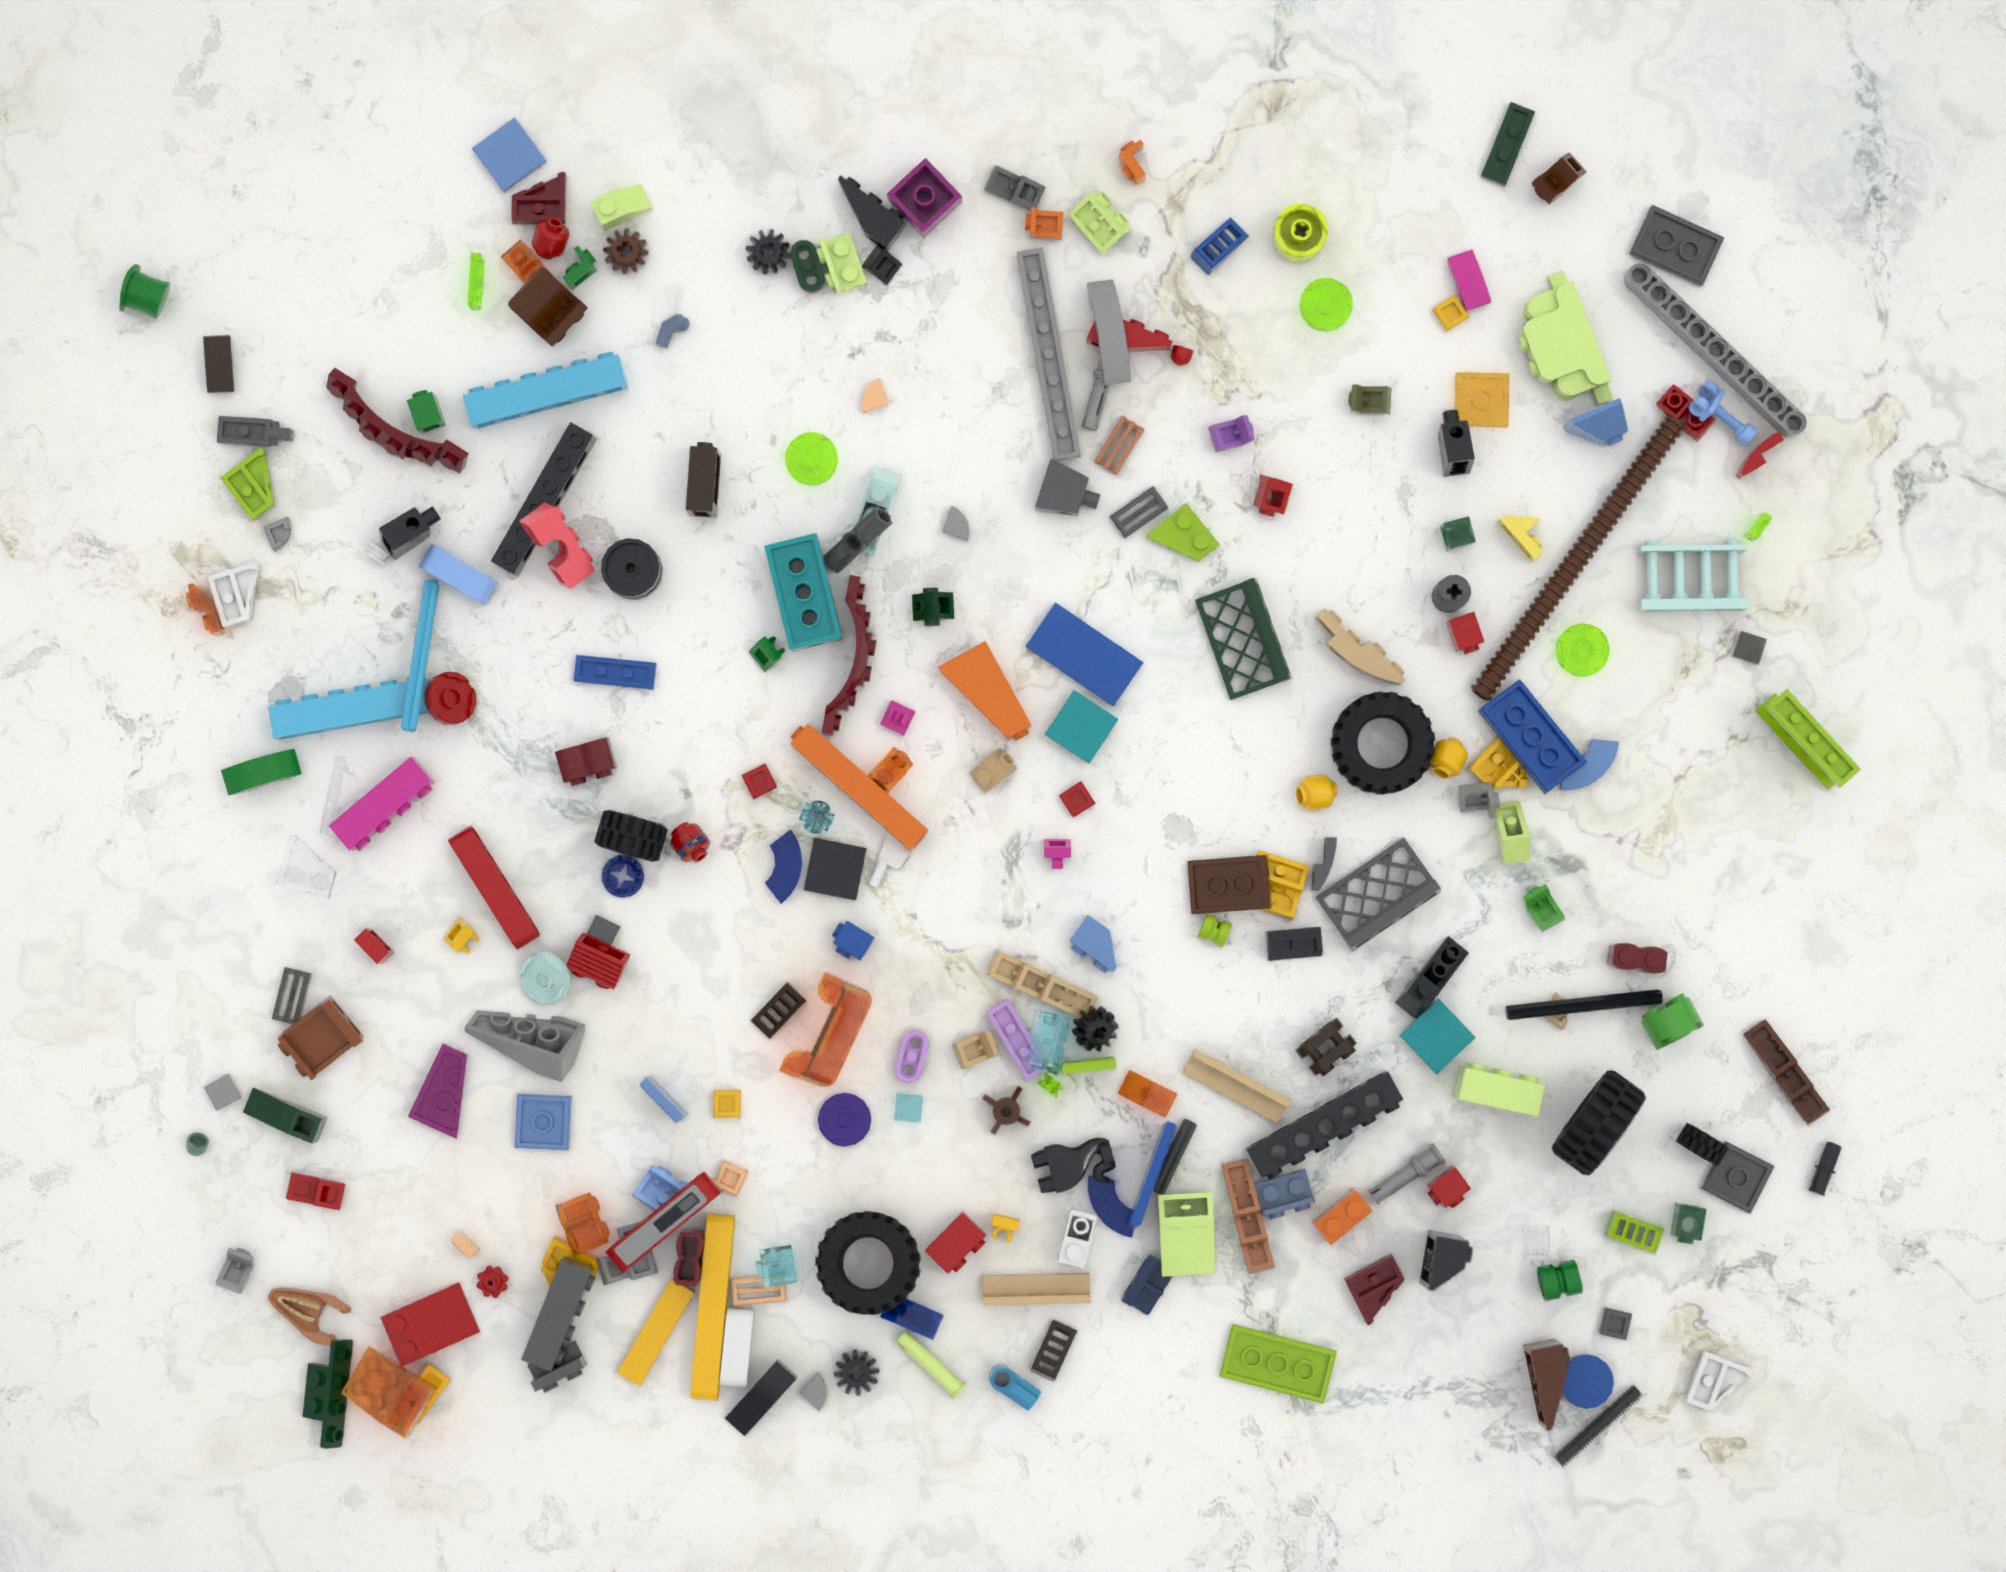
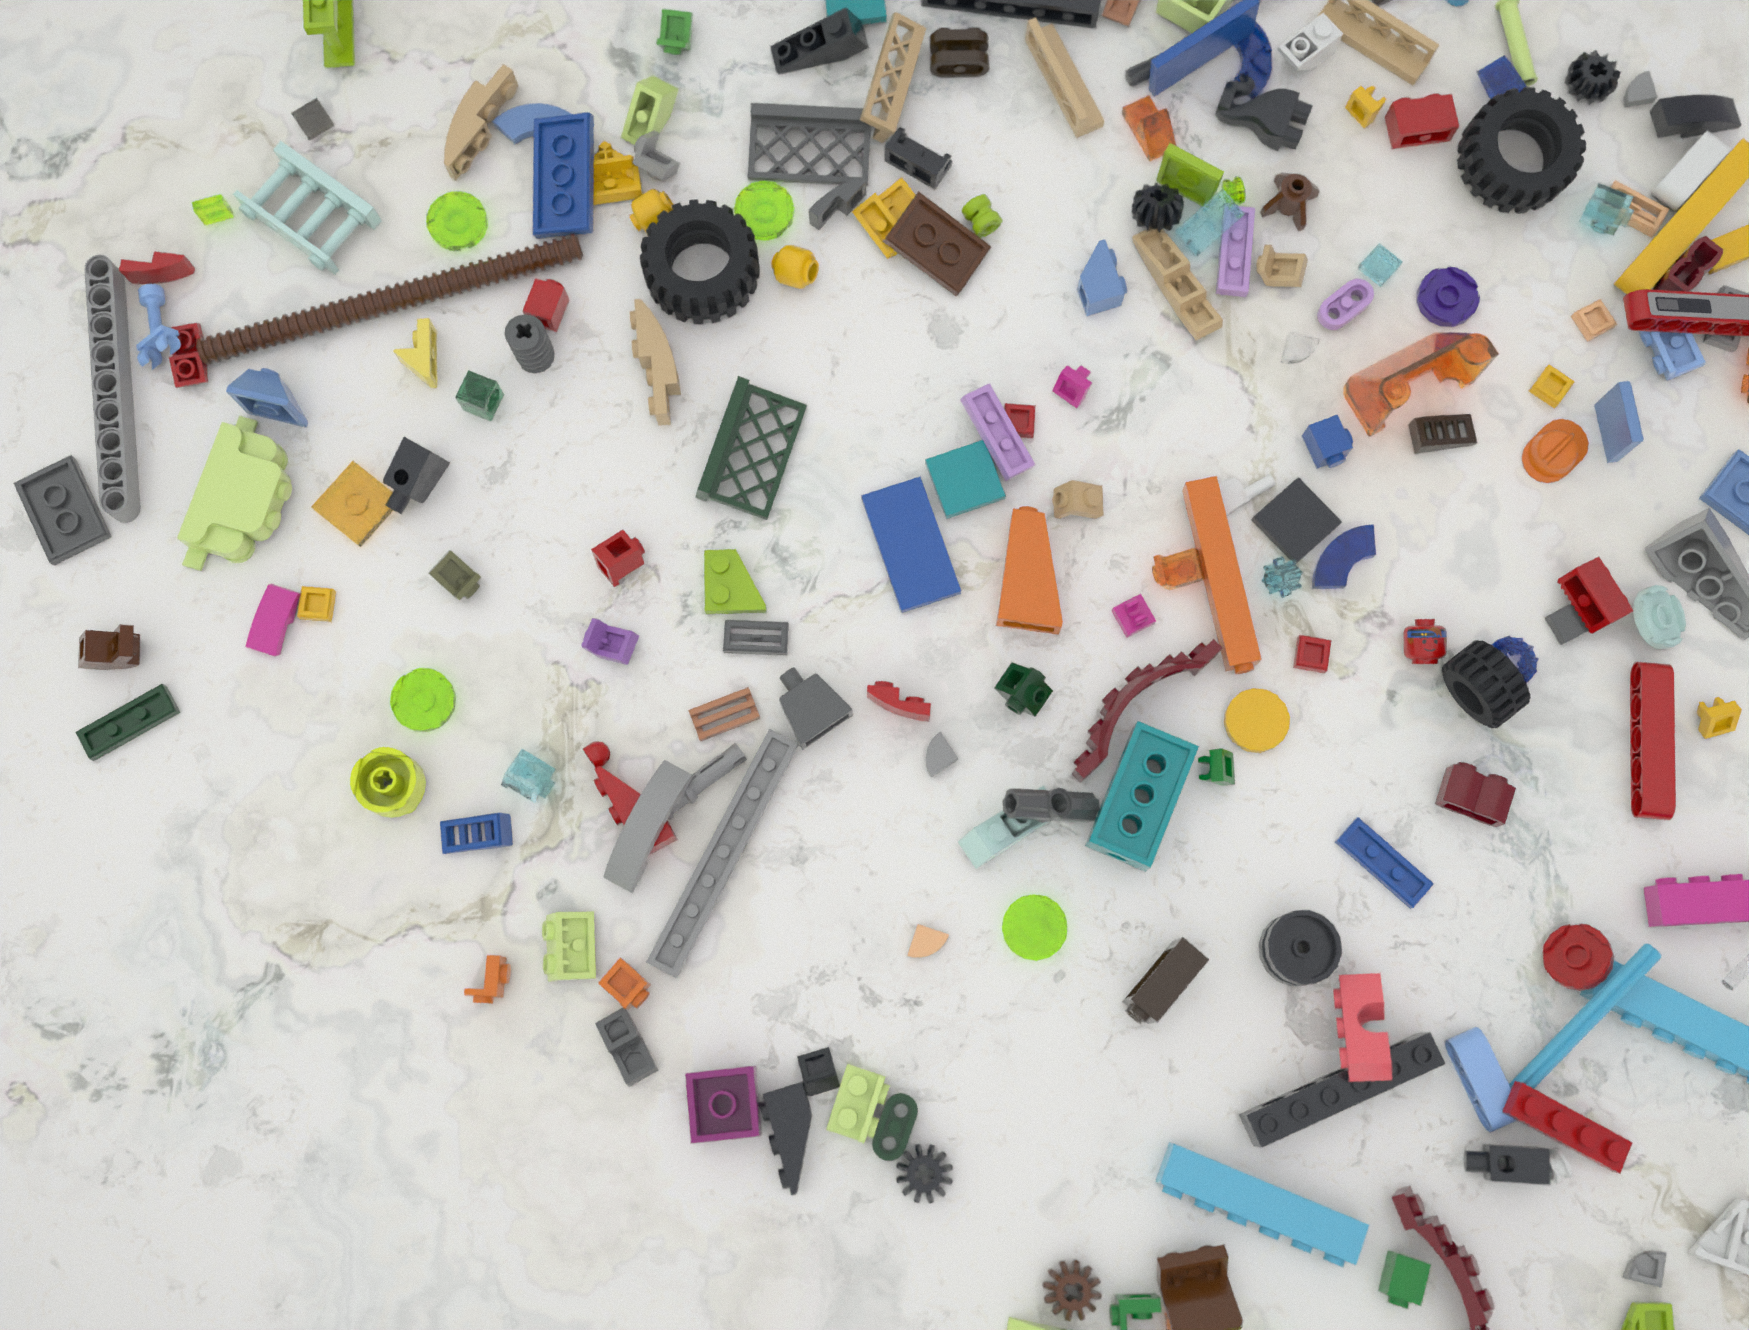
camera: 145 degrees left, 10 degrees down
(386, 581) = (1567, 1127): none -> red plate
(669, 326) = (1082, 1173): sand blue arm -> none
(692, 1057) = (1555, 451): none -> orange piece
(764, 706) = (1256, 720): none -> yellow tile
(1018, 536) = (887, 697): none -> red slope
(1083, 774) = (997, 432): none -> lavender plate
(1221, 312) = (529, 766): none -> clear light blue brick
(1352, 989) = (899, 76): none -> tan fence
(1372, 821) = (765, 208): none -> clear neon green tile
(1628, 719) = (469, 128): none -> tan slope

